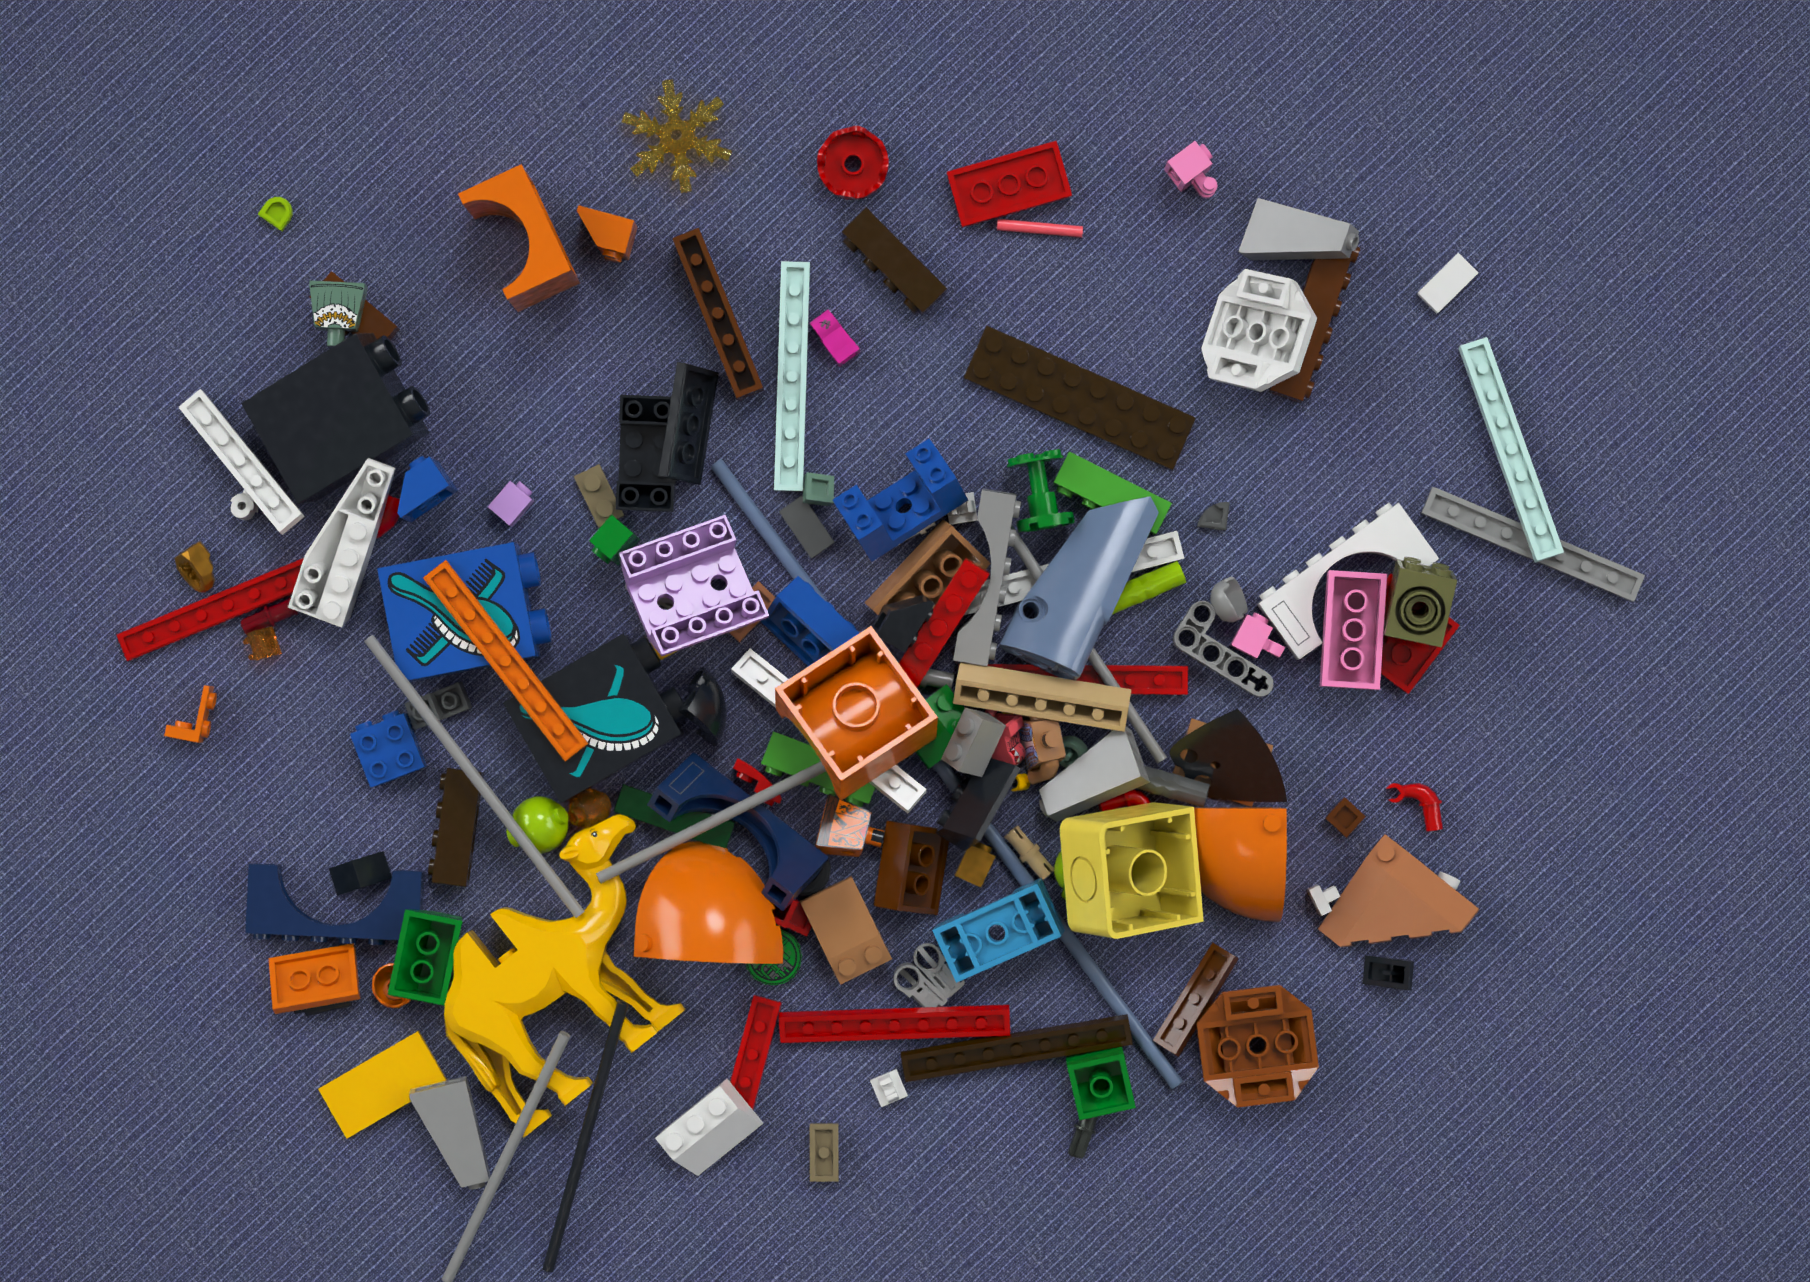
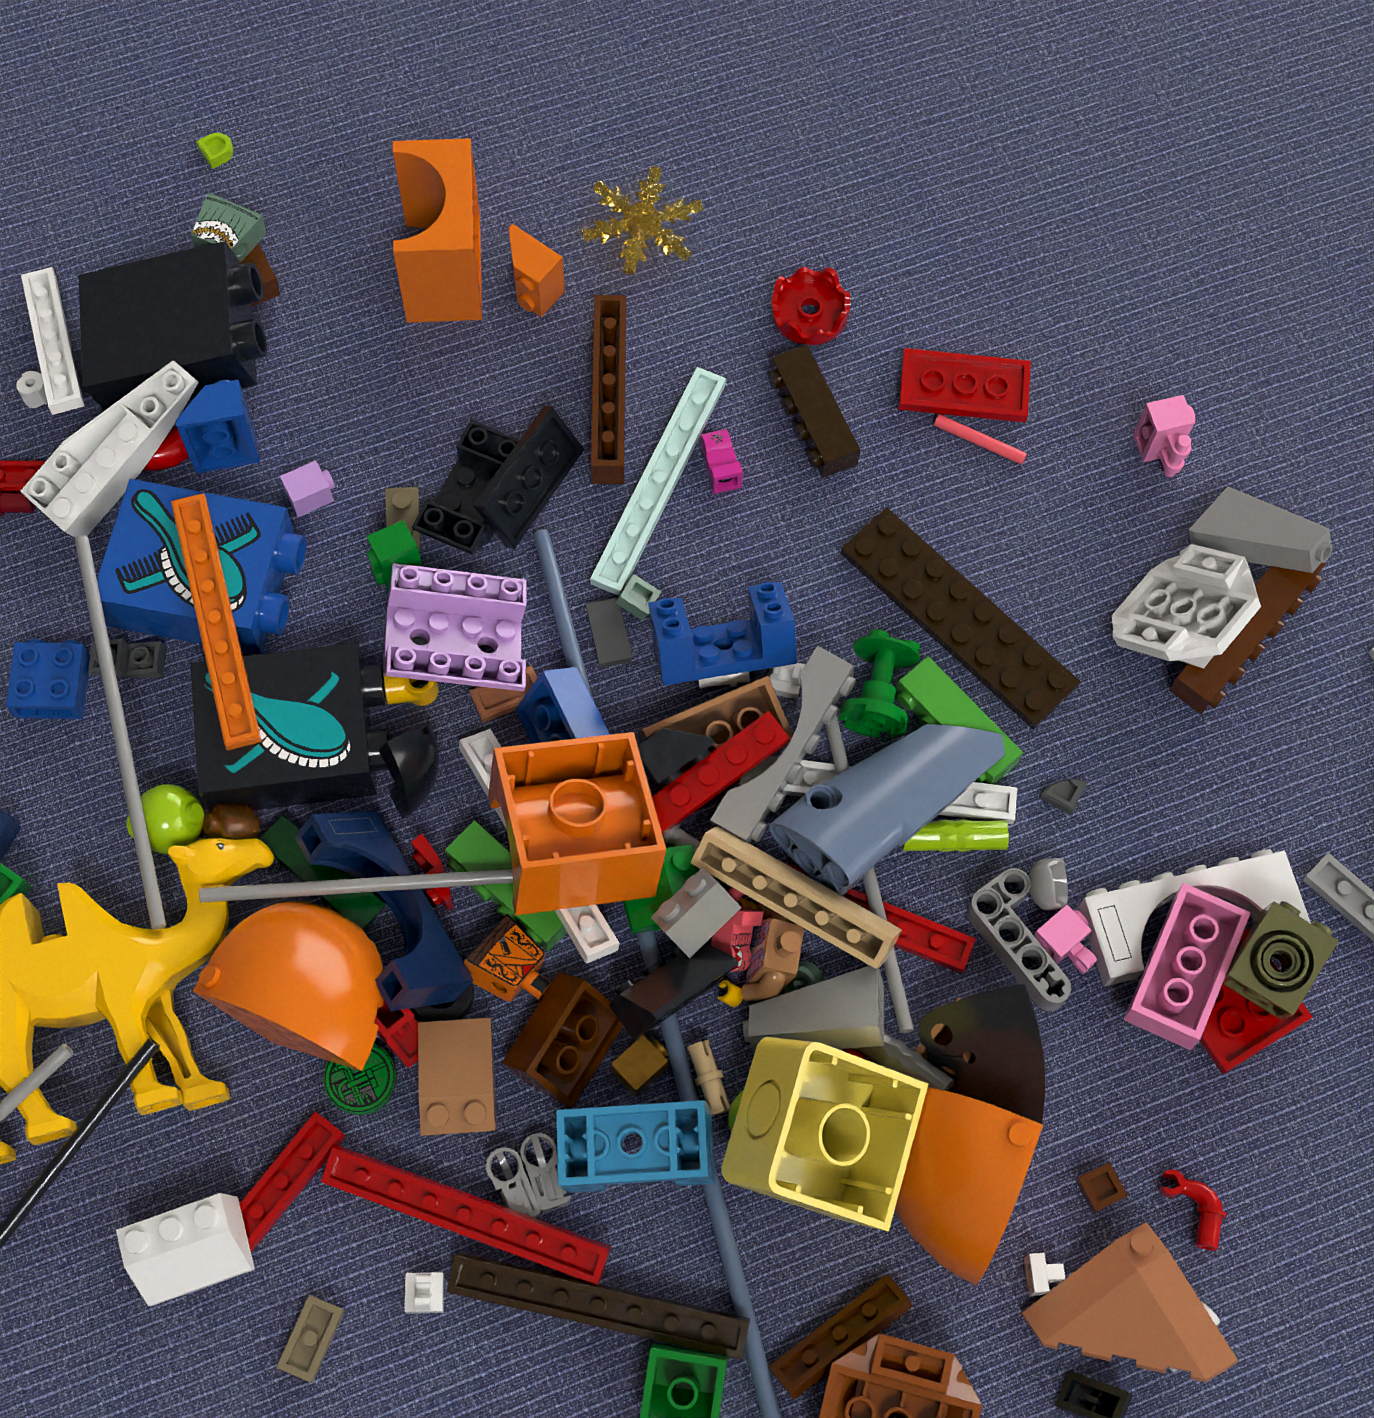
camera: 20 degrees right, 20 degrees down
(456, 830) = (75, 793): dark brown brick -> none

